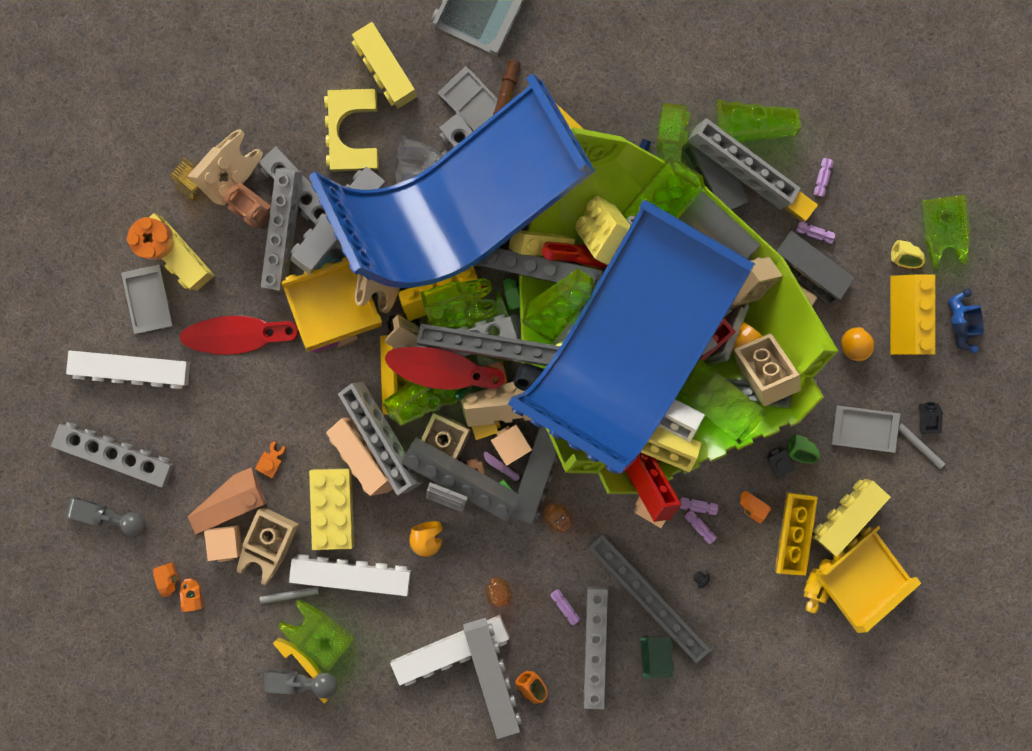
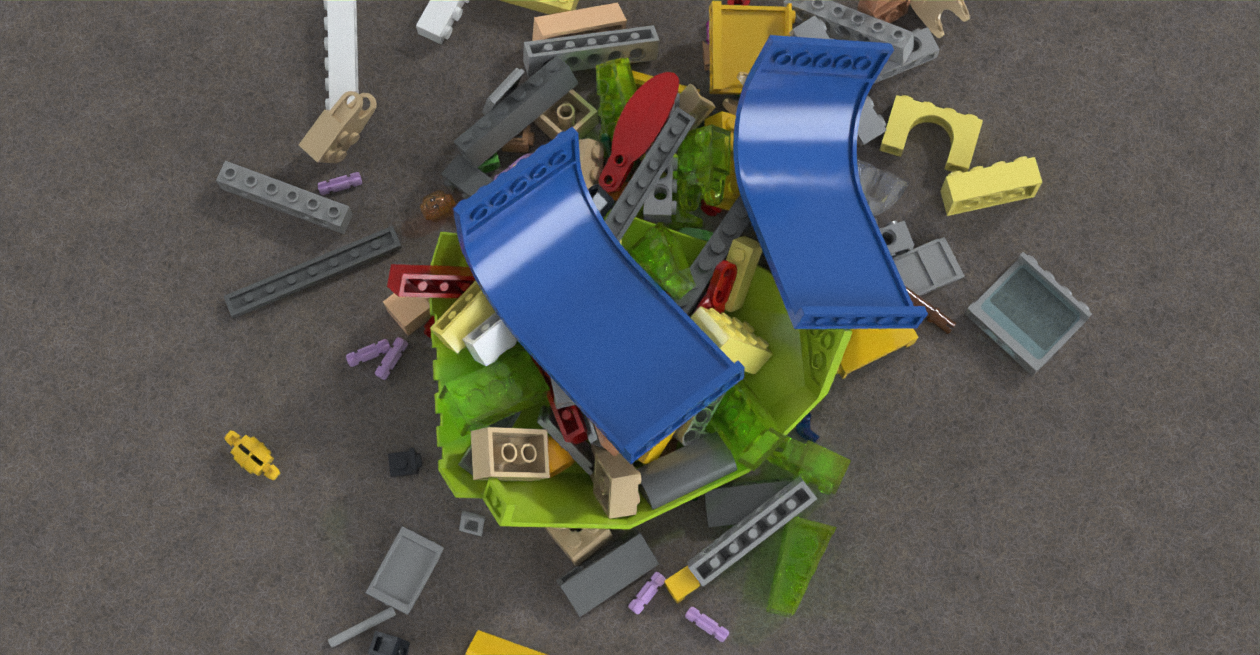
camera: 115 degrees right, 15 degrees down
(423, 538) = (470, 60): light orange helmet -> none
(491, 677) = (295, 79): light grey brick -> none
(498, 592) = (384, 120): clear orange head -> none
(526, 624) = (338, 128): none -> tan brick
(532, 687) = (269, 120): orange rock -> none
(657, 657) = (247, 256): clear green brick -> none
(701, 579) = (311, 334): black piece -> none
(754, 507) = (367, 416): orange rock -> none
(796, 534) = (319, 445): yellow slope -> none
(802, 450) = (408, 491): bright green rock -> none
(850, 516) = (313, 513): light yellow brick -> none
(857, 344) = (503, 593): light orange helmet -> none
(866, 580) = (238, 506): yellow panel -> none

